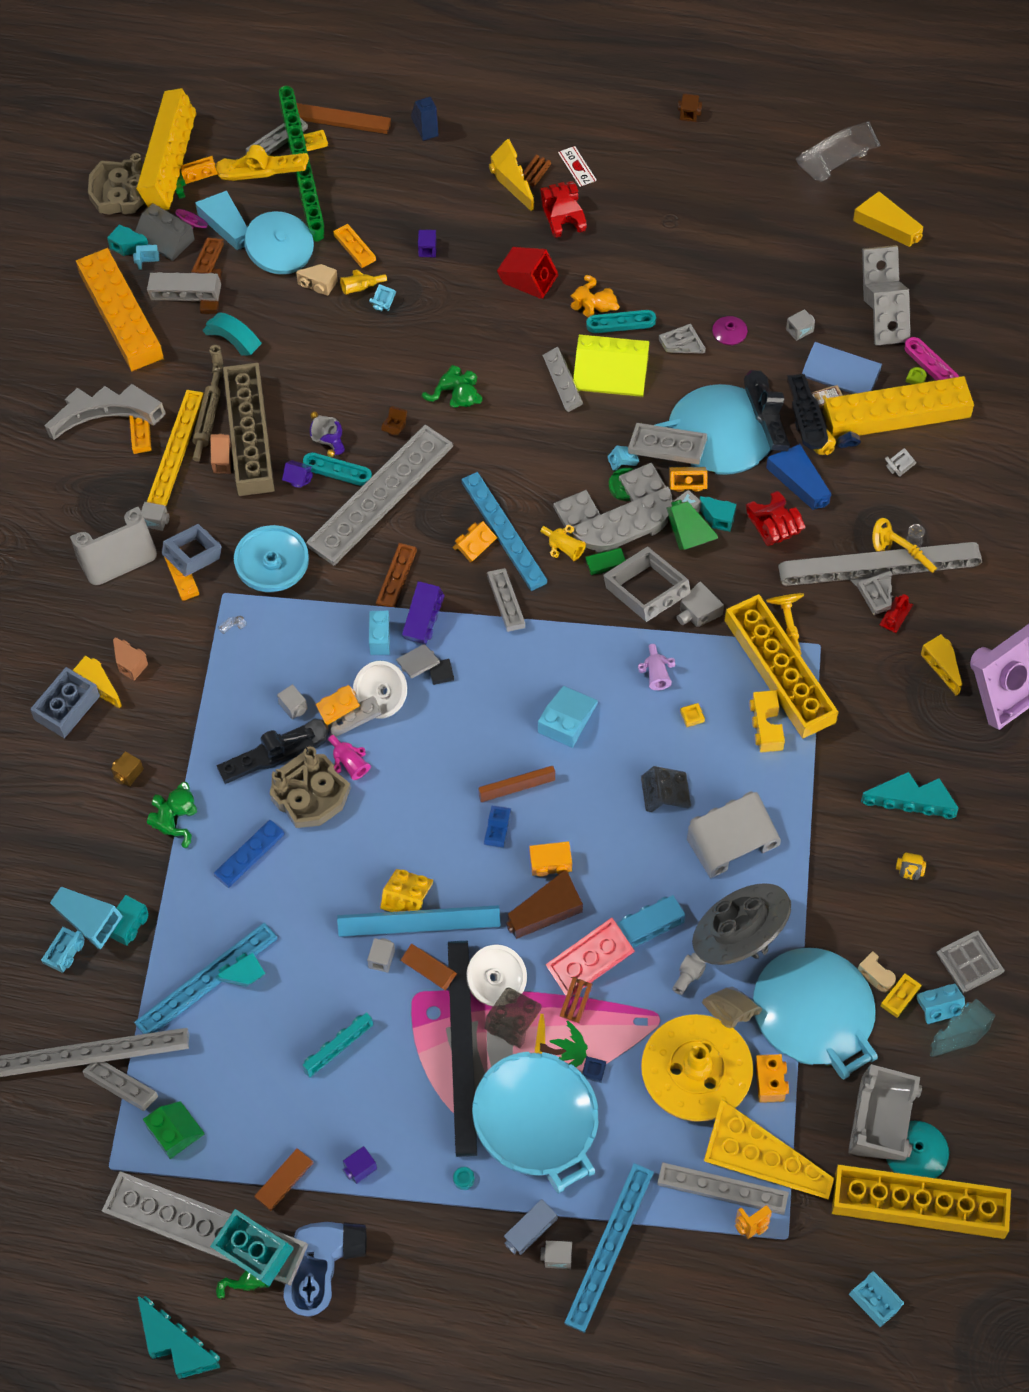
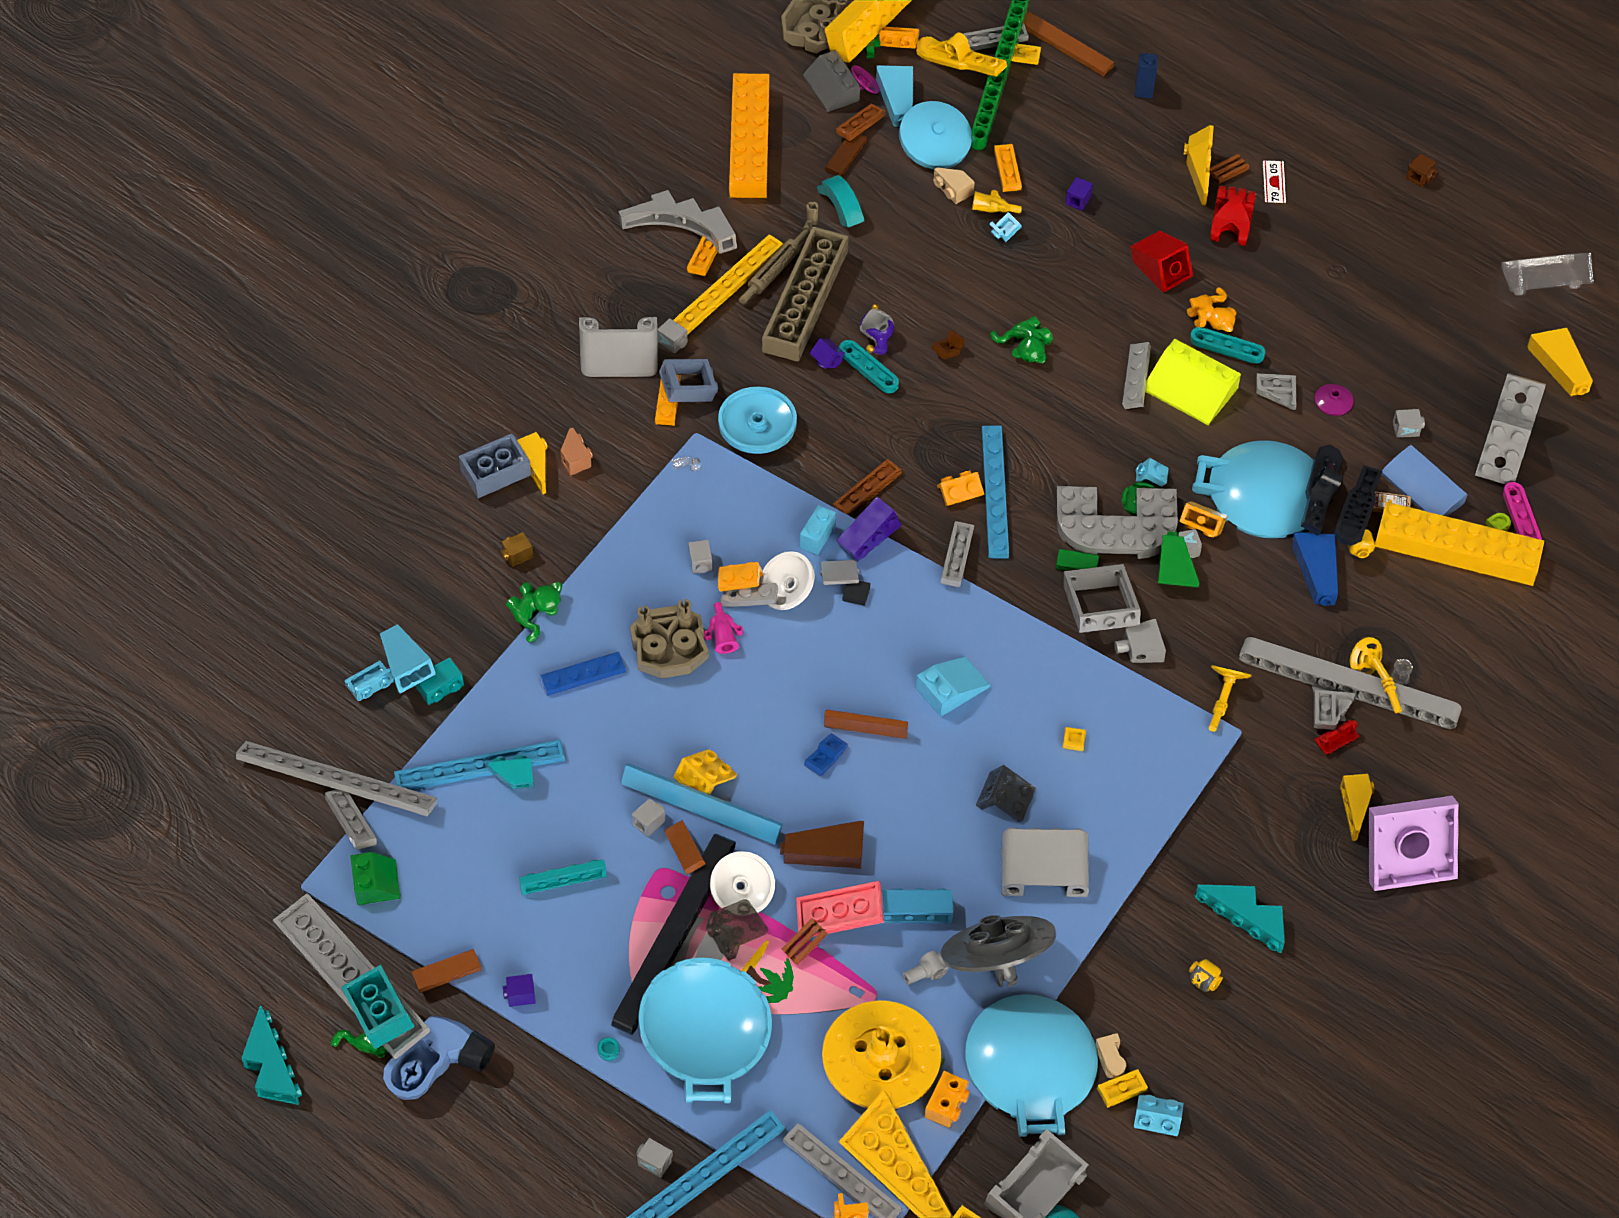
camera: 25 degrees right, 5 degrees down
(125, 240) = (793, 76): teal slope -> none
(145, 253) = (804, 95): medium azure bracket -> none
(184, 286) = (821, 139): light grey brick -> none
(221, 454) = (765, 304): nougat slope -> none
(275, 750) = (659, 592): black piece -> none
(378, 495) = (895, 406): light grey plate -> none
(530, 1228) = (640, 1119): sand blue window -> none
(550, 858) = (856, 804): light orange brick -> none
(559, 539) = (1049, 531): yellow piece -> none
(594, 1069) = (785, 1012): dark blue tile -> none
(658, 674) = (1062, 686): lavender piece -> none
(667, 443) = (1201, 477): light grey plate -> none
(718, 513) = (1215, 565): teal slope -> none
(731, 1006) = (947, 1016): dark tan slope -> none
(768, 736) = (1148, 762): yellow arch -> none
(774, 520) = (1267, 595): red piece -> none
(781, 666) = (1186, 731): yellow brick -> none
(848, 440) = (1389, 552): dark blue tile -> none
(900, 462) = (1429, 596): light grey bracket -> none
(964, 1029) = (1161, 1146): clear light blue slope -> none
(970, 961) = (1211, 1091): clear piece -> none

